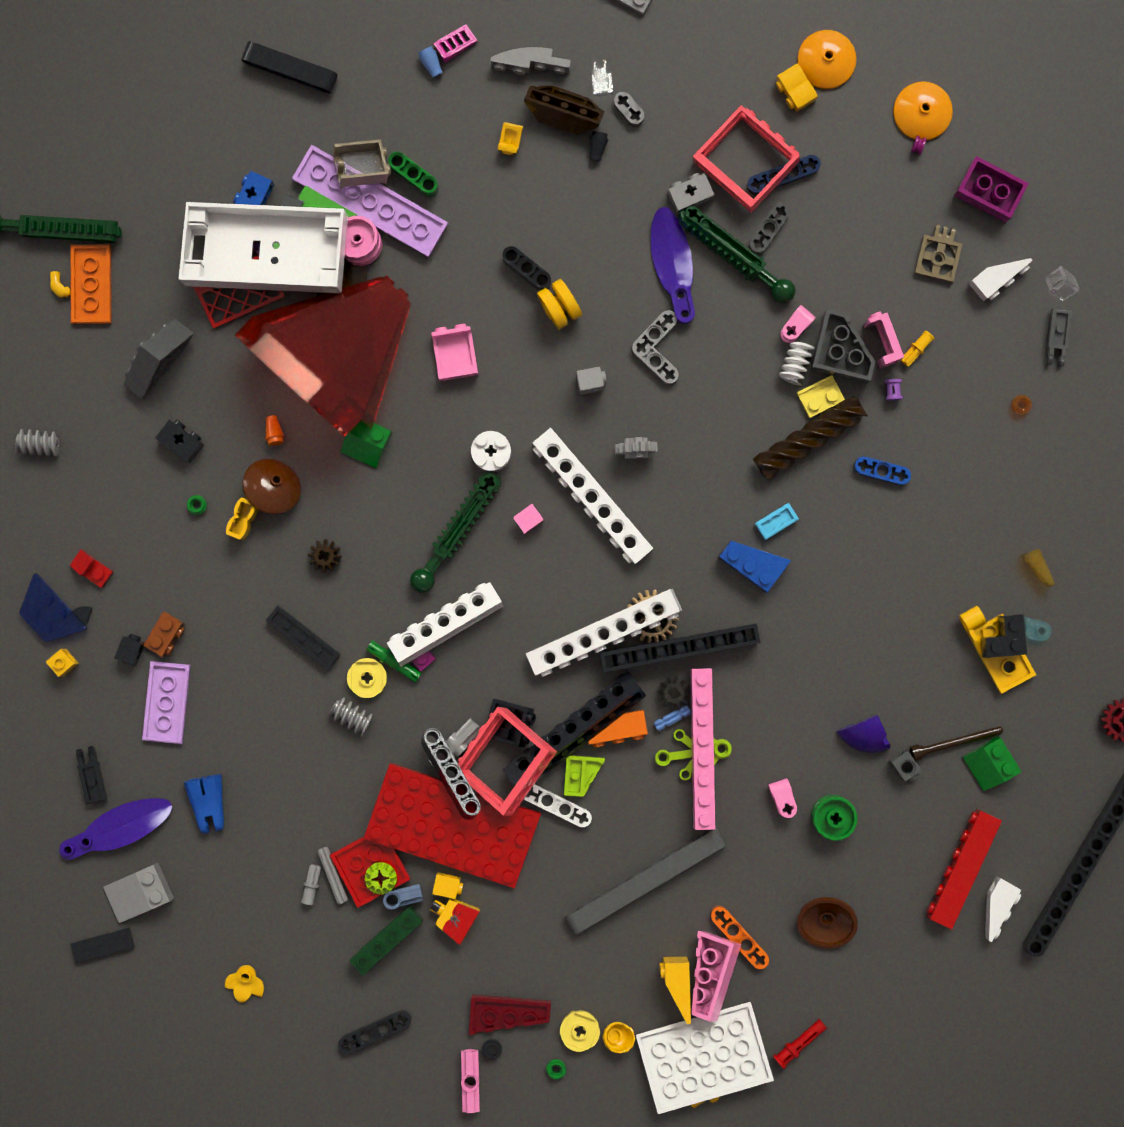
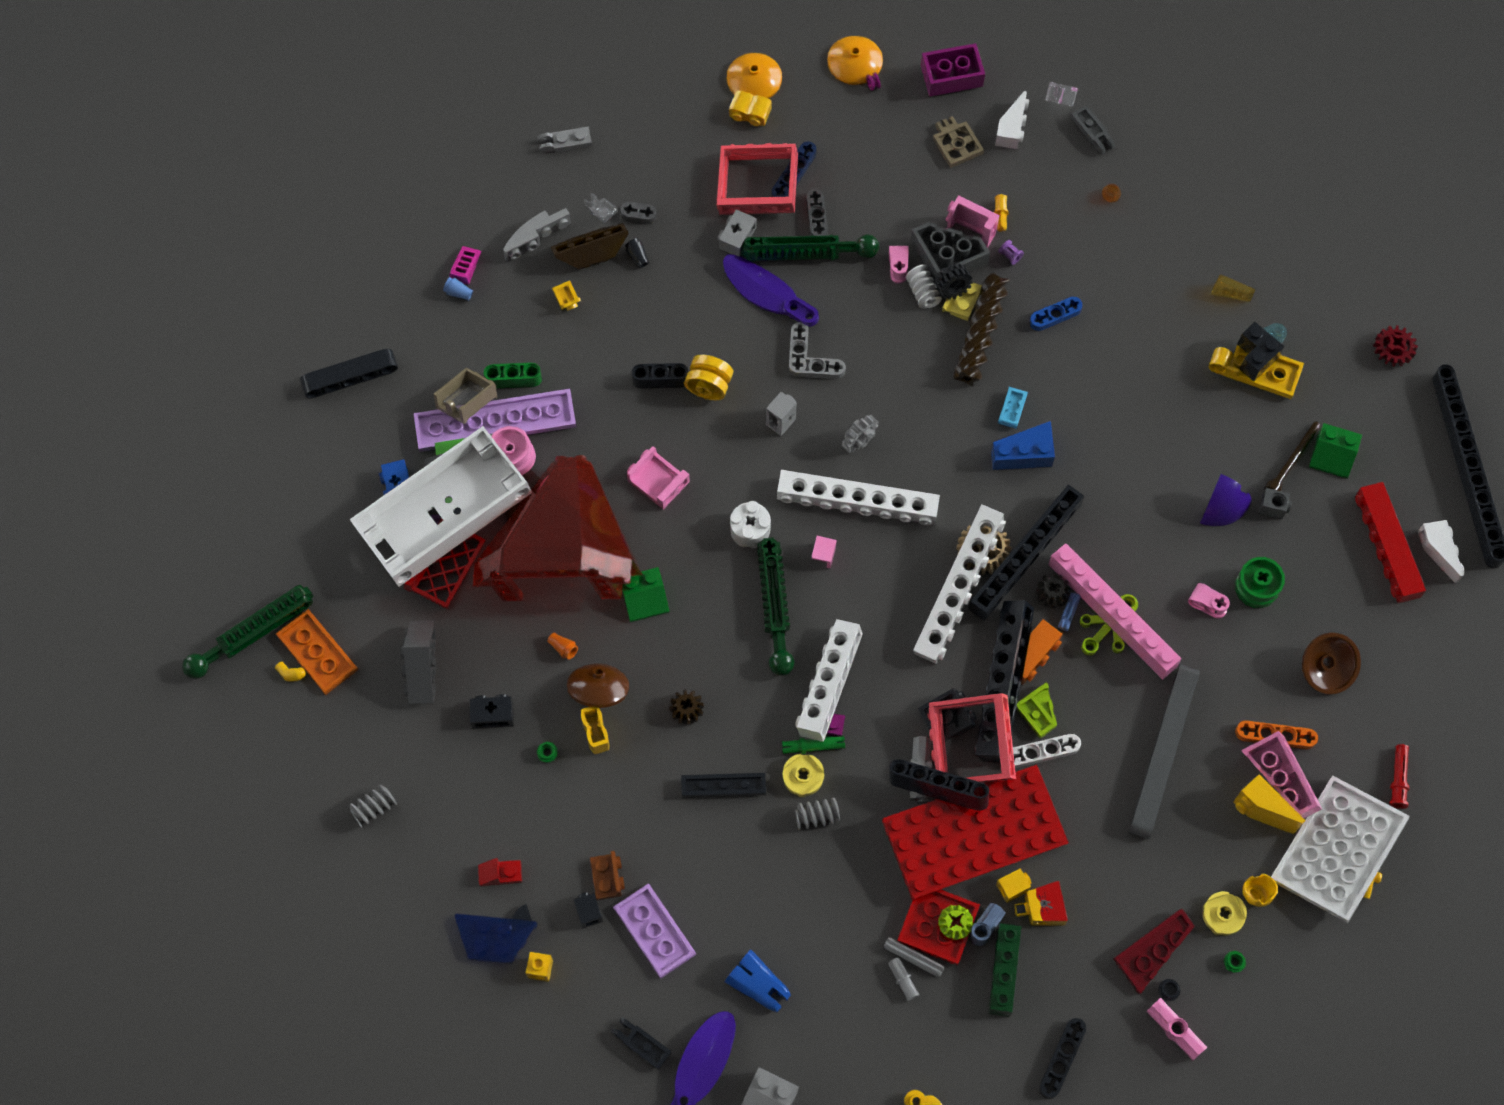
camera: 40 degrees left, 20 degrees down
(820, 381) = (953, 281): none -> black tyre

